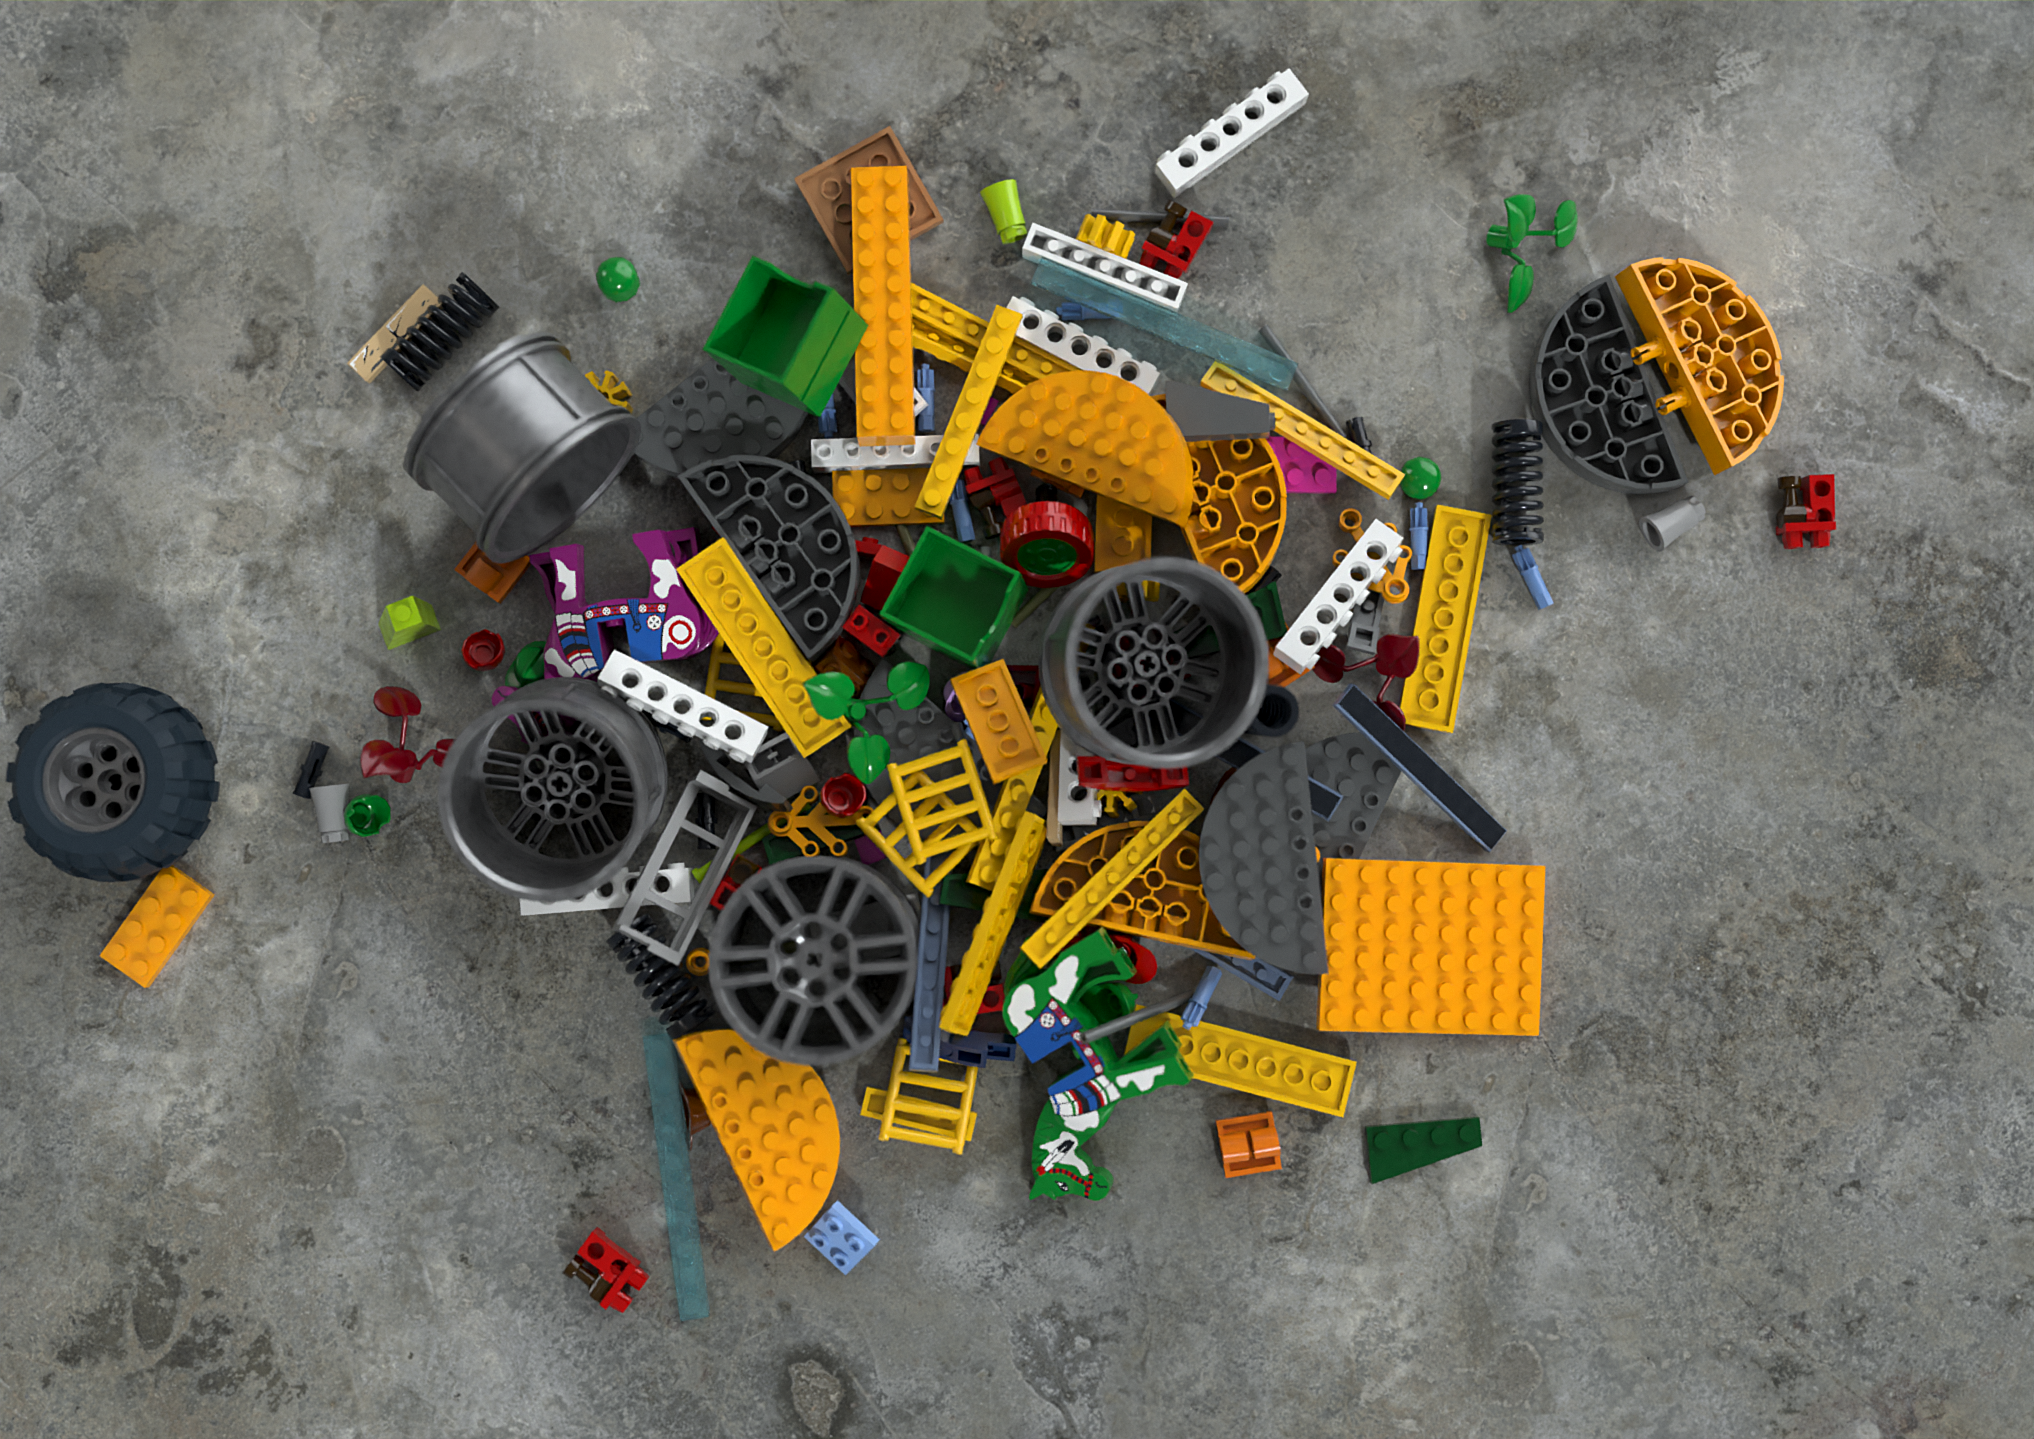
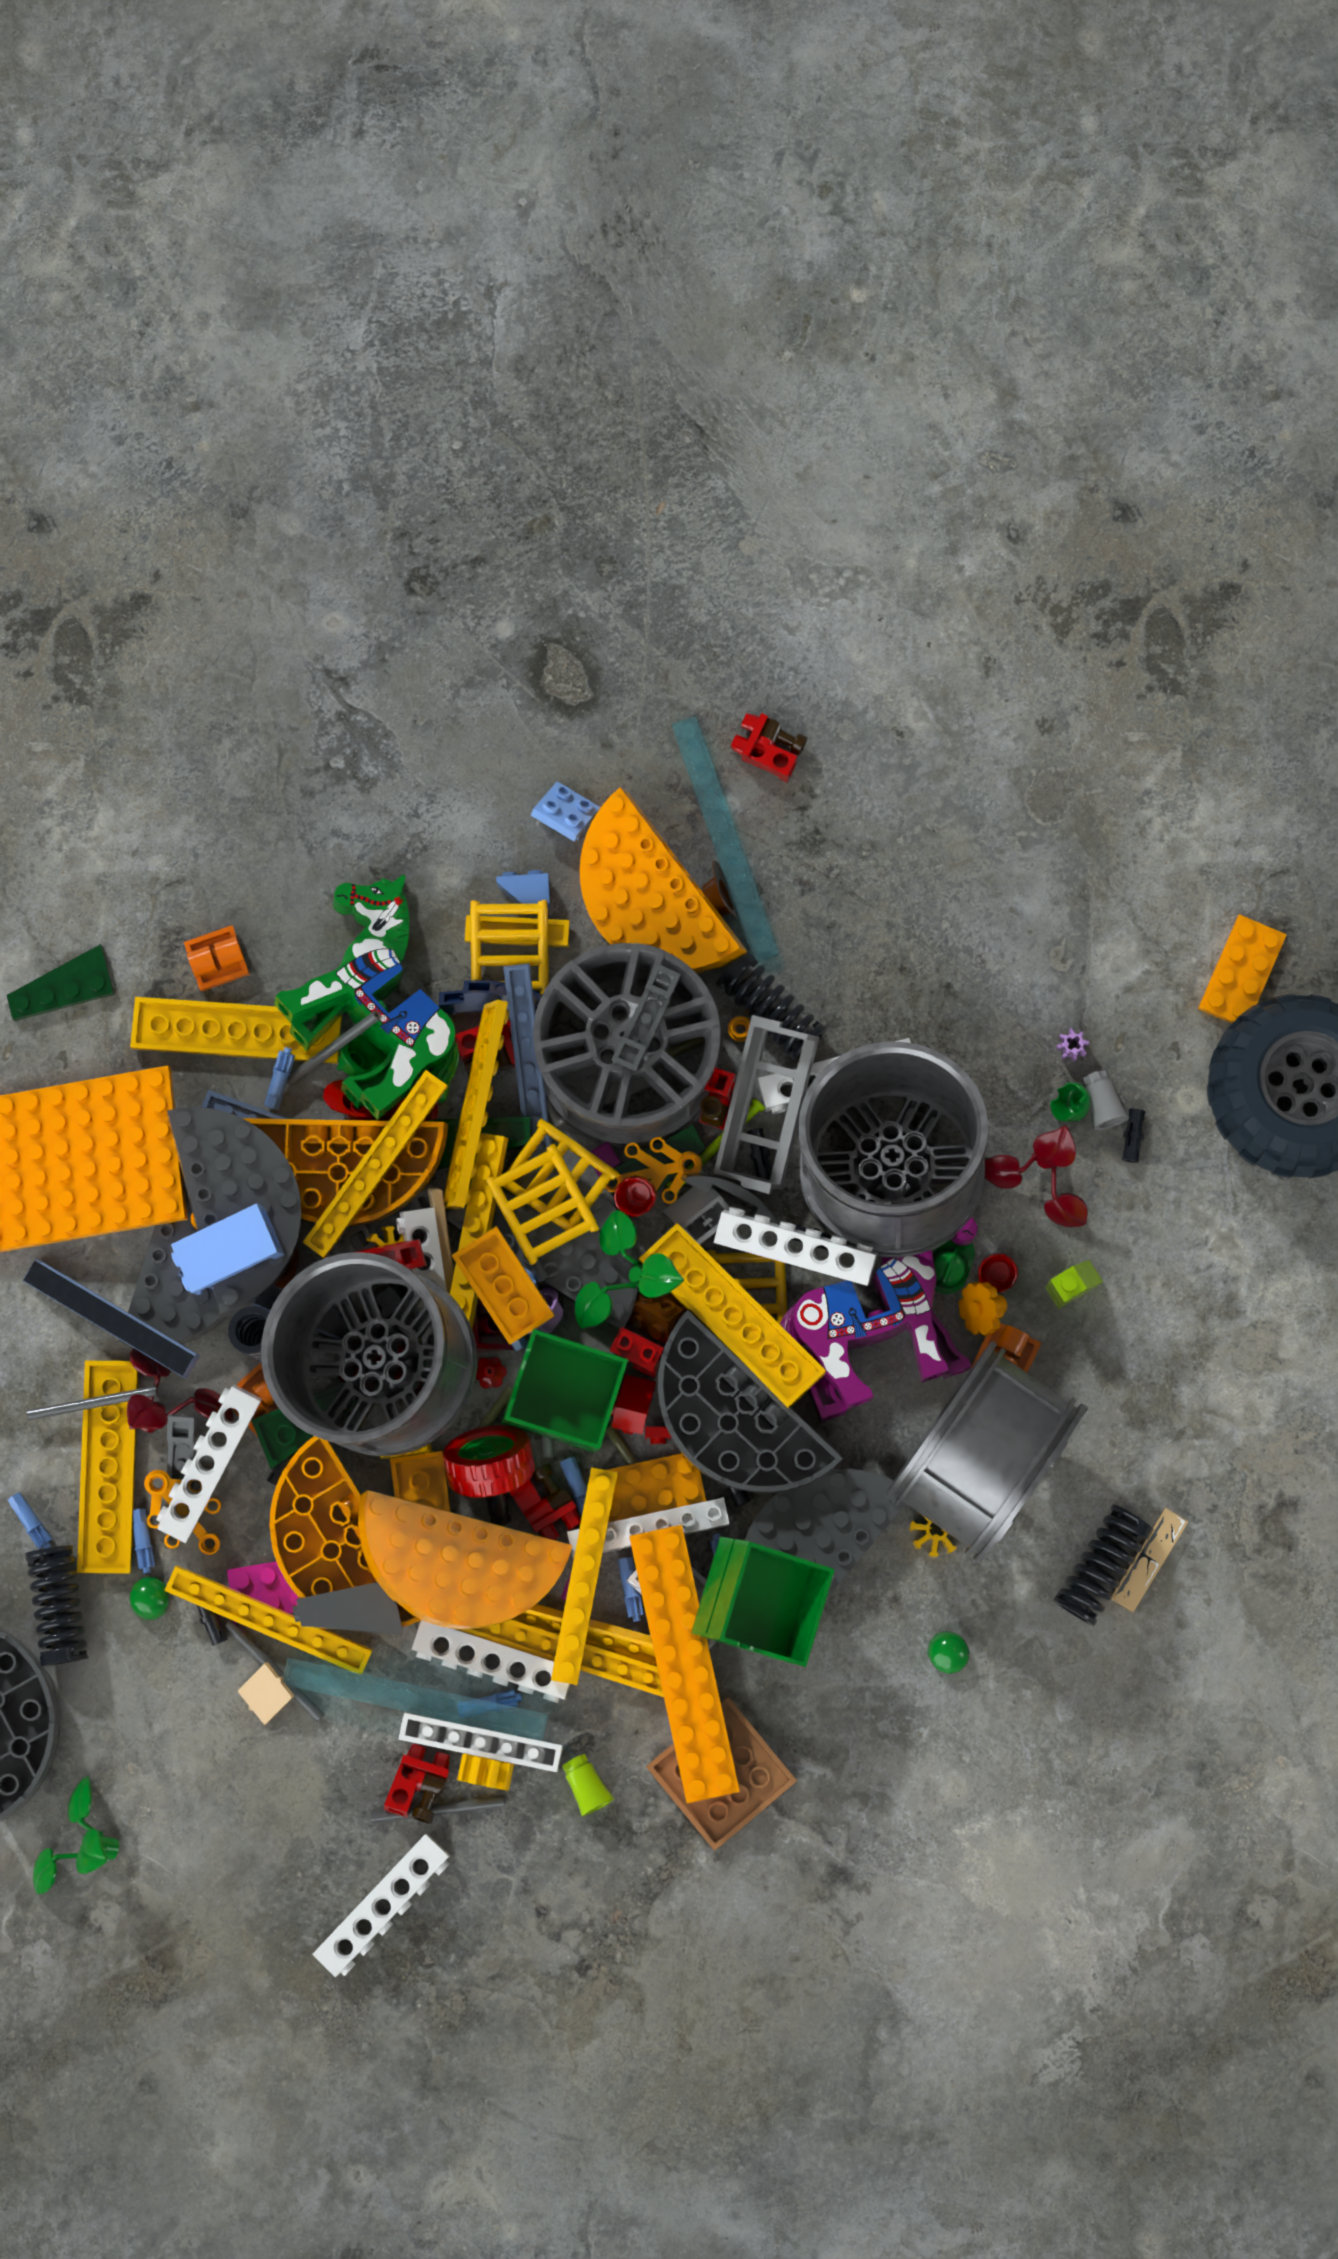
camera: 170 degrees right, 5 degrees down
(344, 877) = (1065, 1040): none -> lavender gear
(506, 614) = (982, 1308): none -> light orange plant
(786, 972) = (646, 1017): none -> dark grey slope
(900, 1157) = (525, 888): none -> medium blue slope
(1022, 645) = (495, 1378): none -> red plant
(1286, 807) = (226, 1248): none -> light blue panel
(1315, 359) = (266, 1693): none -> tan piece
(1450, 685) = (89, 1403): none -> dark grey piece

